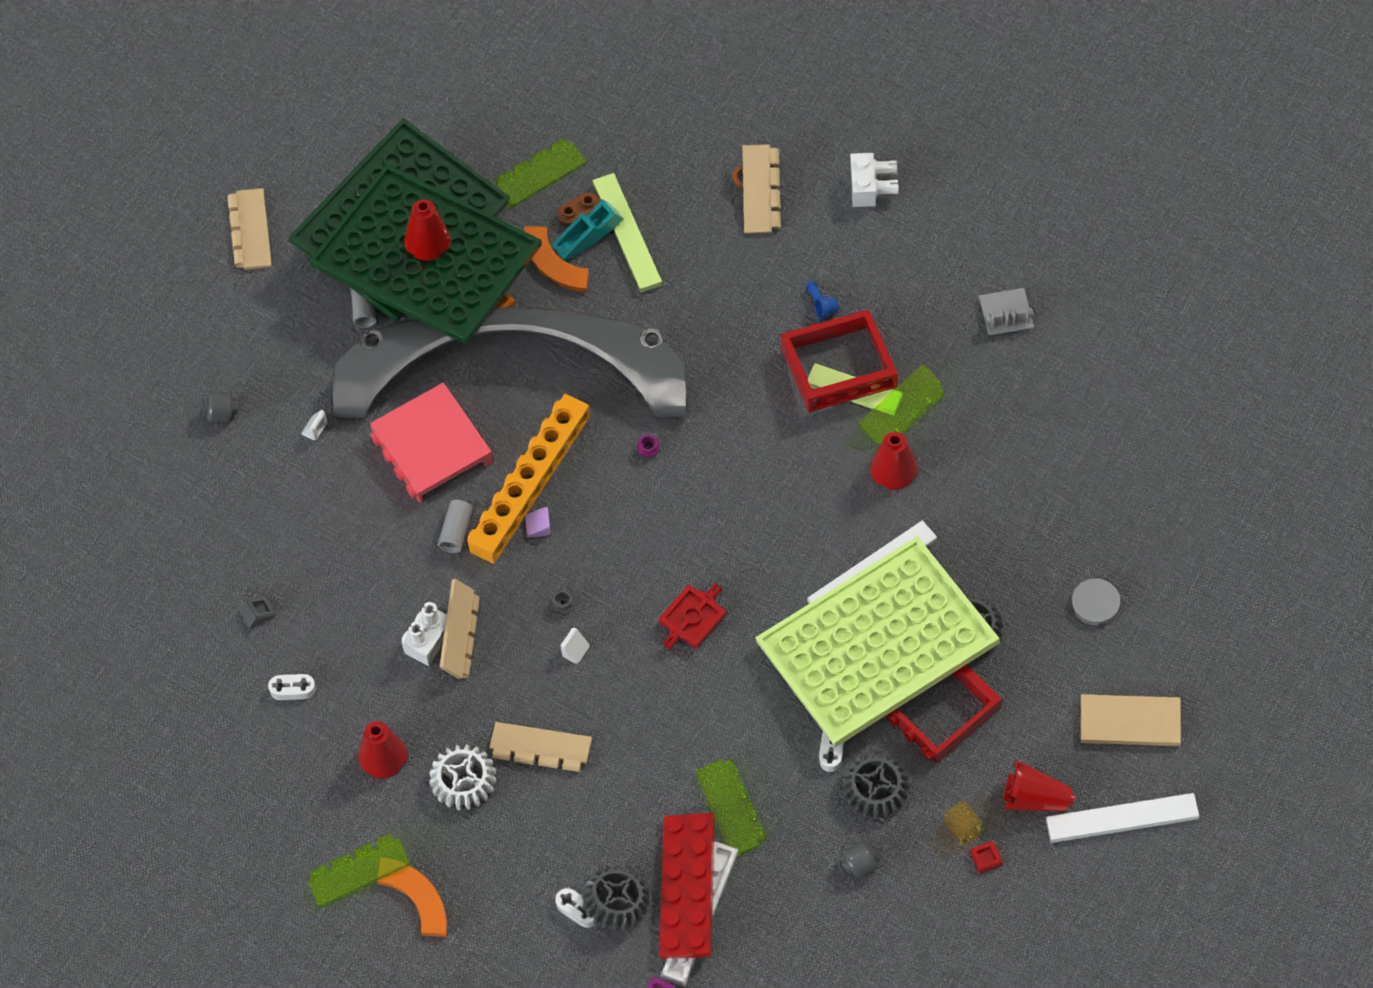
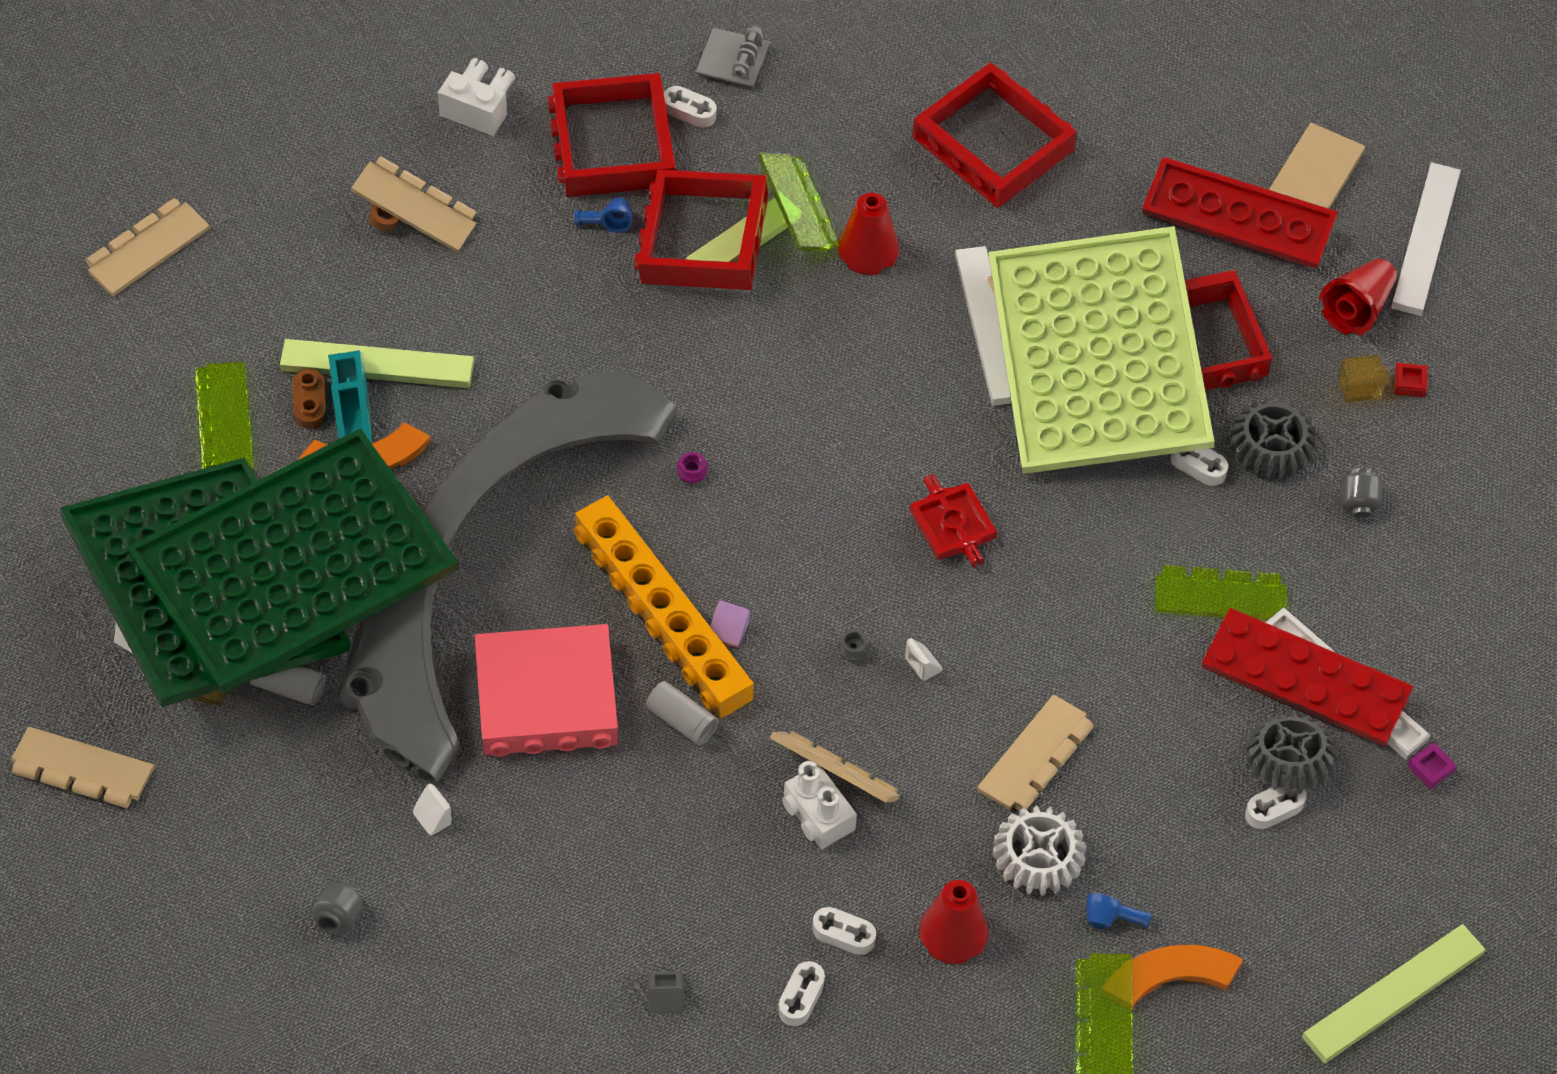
camera: 70 degrees left, 5 degrees down
(353, 690) = (844, 931): none -> white beam
(426, 232) = (277, 533): red cone -> none
(439, 835) = (1104, 909): none -> blue bar
(637, 64) = (153, 244): none -> tan windscreen
(905, 301) = (610, 178): none -> red window
(951, 306) = (690, 106): none -> white beam
(1024, 536) = (966, 164): none -> red window
(1061, 683) = (1240, 212): none -> red plate
(1095, 601) = (1147, 141): light grey tile -> none

